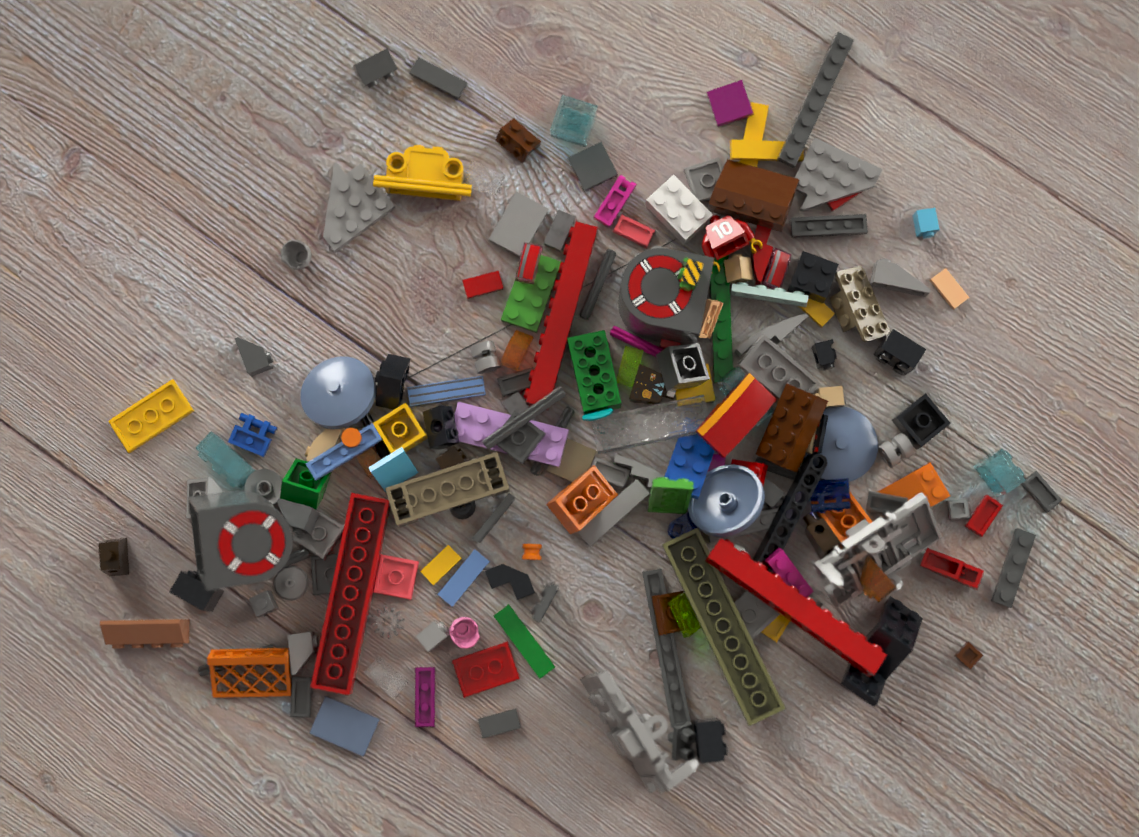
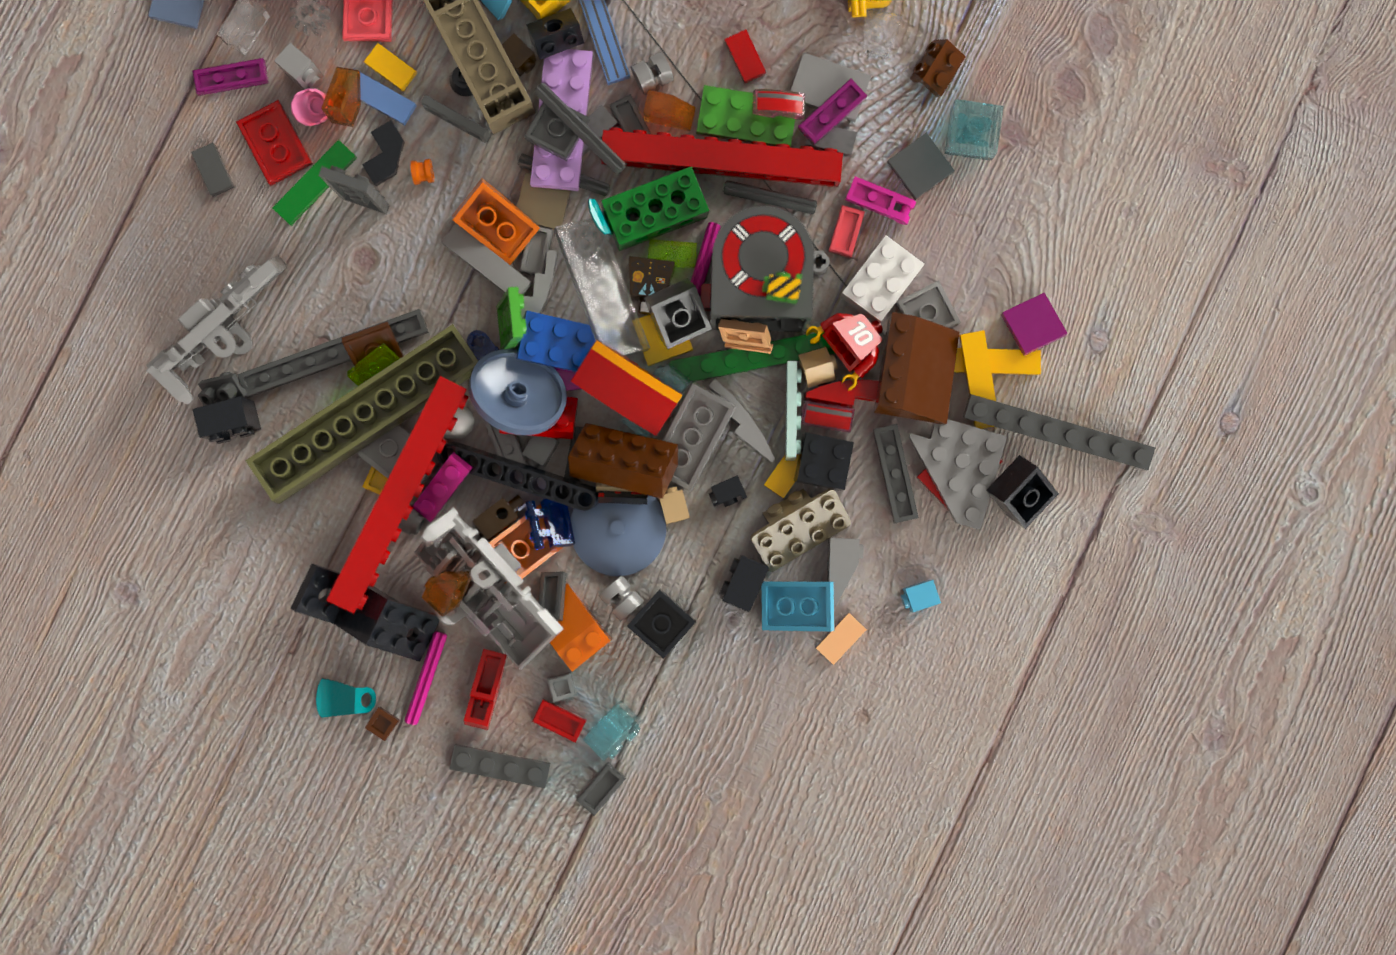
camera: 80 degrees right, 5 degrees up
(461, 604) = (343, 97): none -> clear orange slope
(540, 224) = (832, 111): none -> magenta tile
(859, 132) = (1022, 491): none -> black brick
(923, 314) = (797, 606): none -> medium azure plate
(936, 615) = (425, 678): none -> dark pink axle
(944, 686) = (341, 699): none -> teal piece

